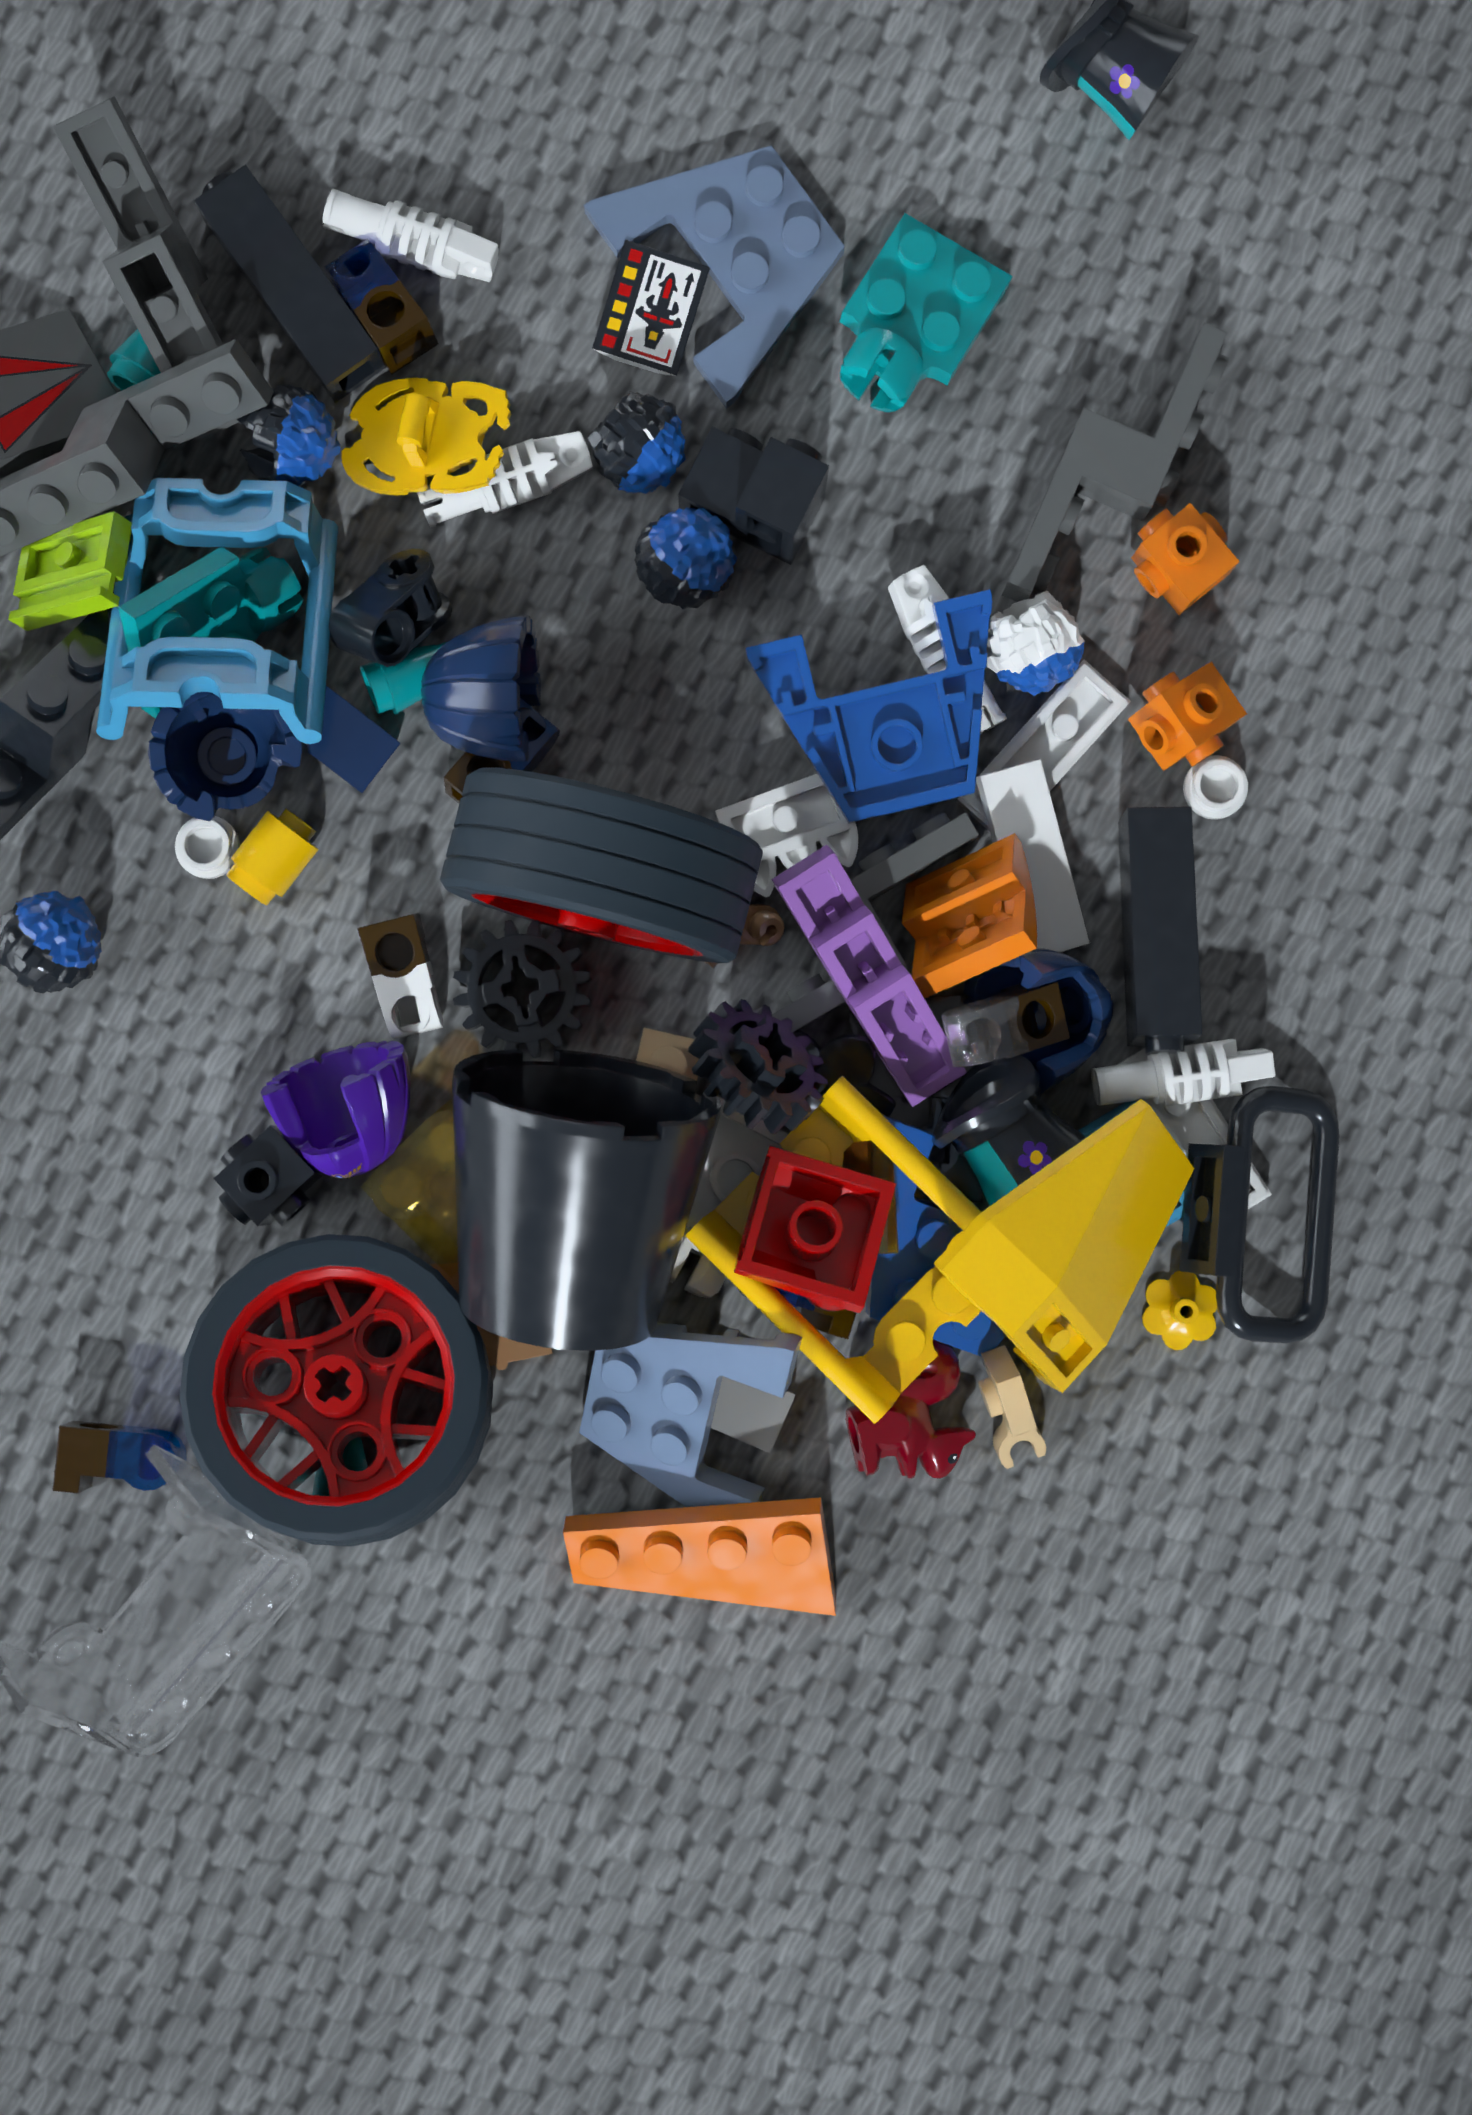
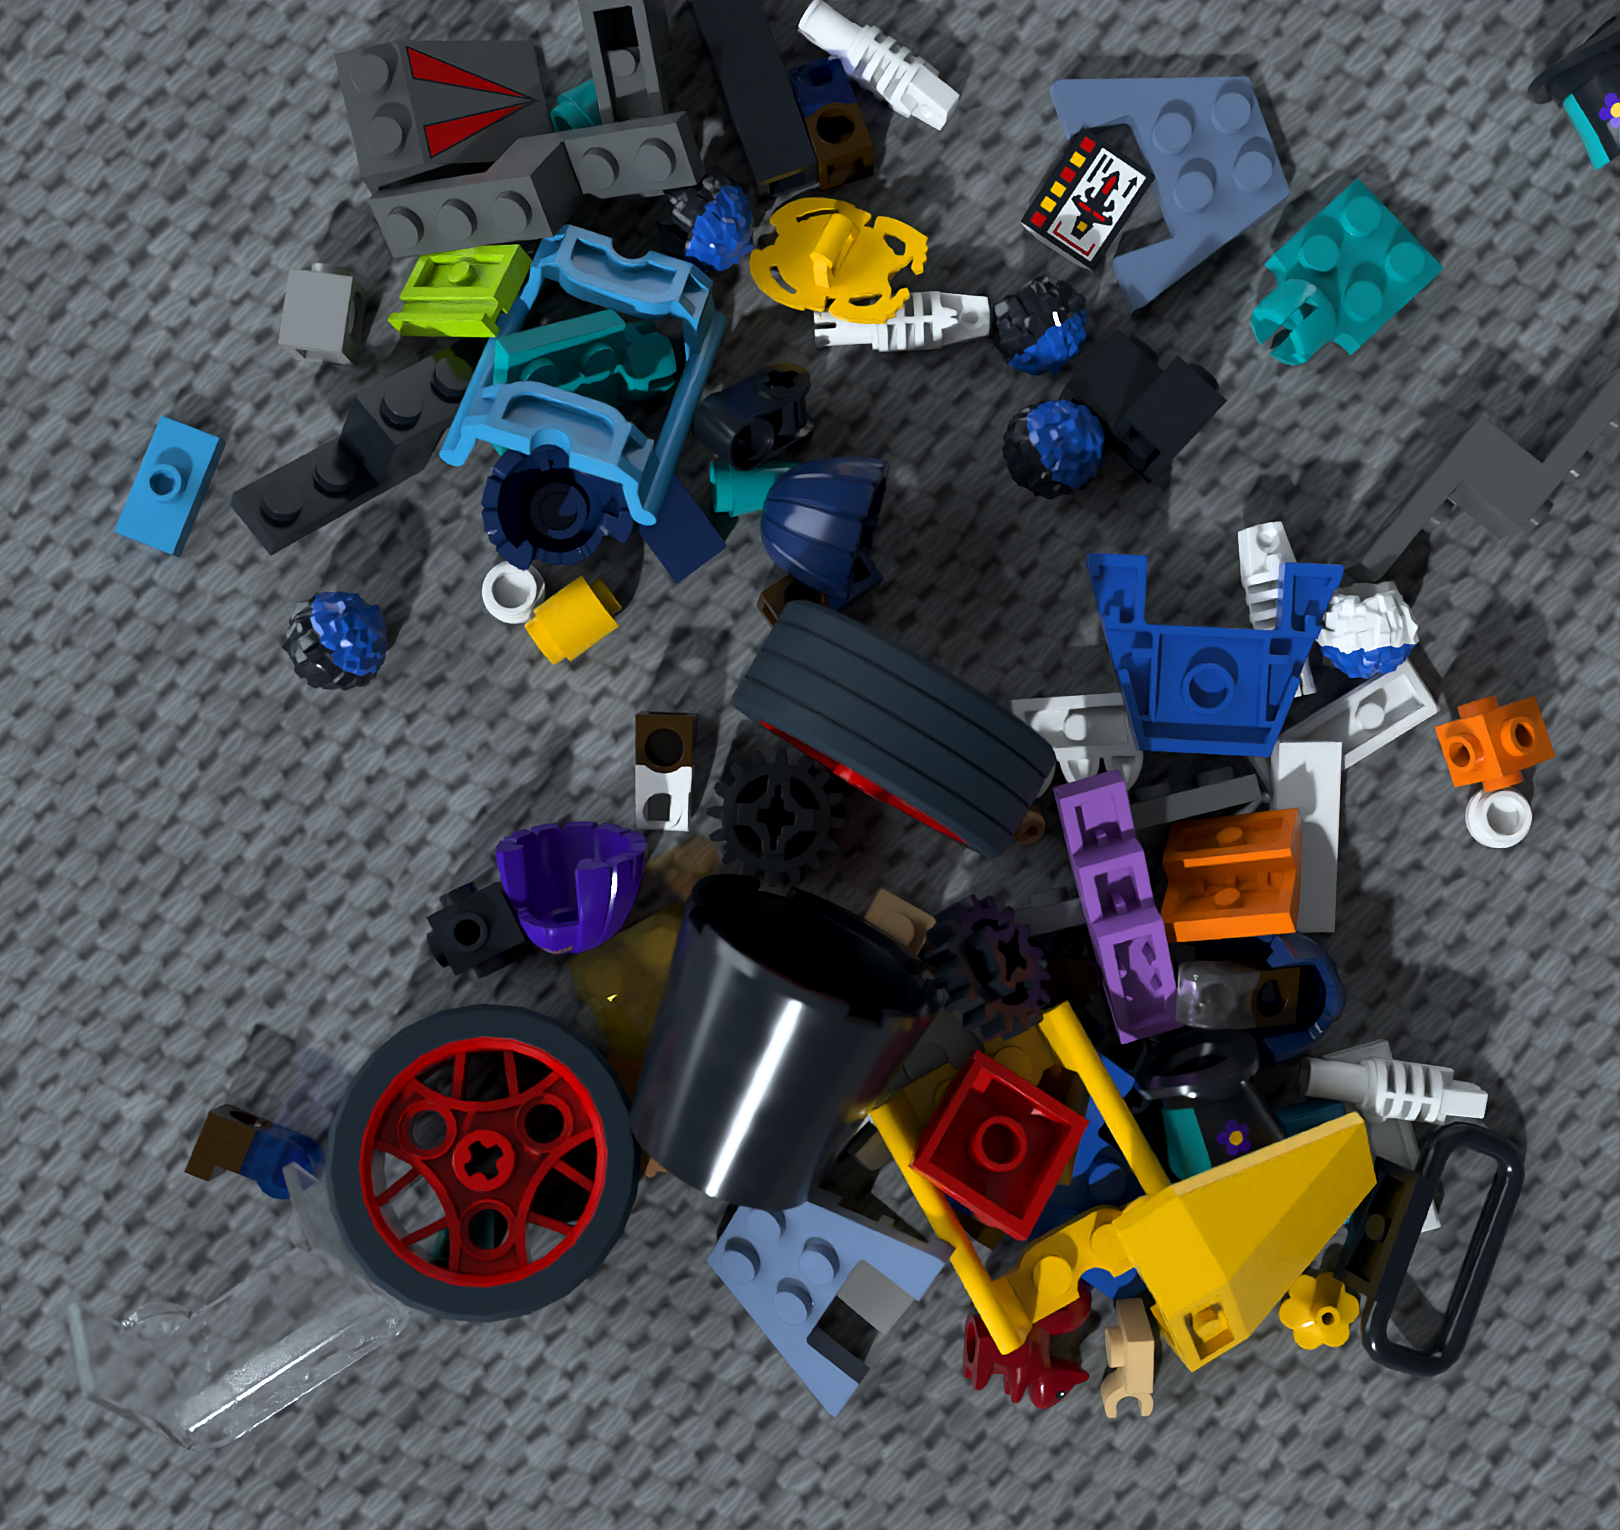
camera: 20 degrees right, 0 degrees up
(723, 1553) = (809, 1419): orange wing -> none
(1159, 928) = (1409, 940): black brick -> none
(1182, 556) = (1534, 586): orange brick -> none

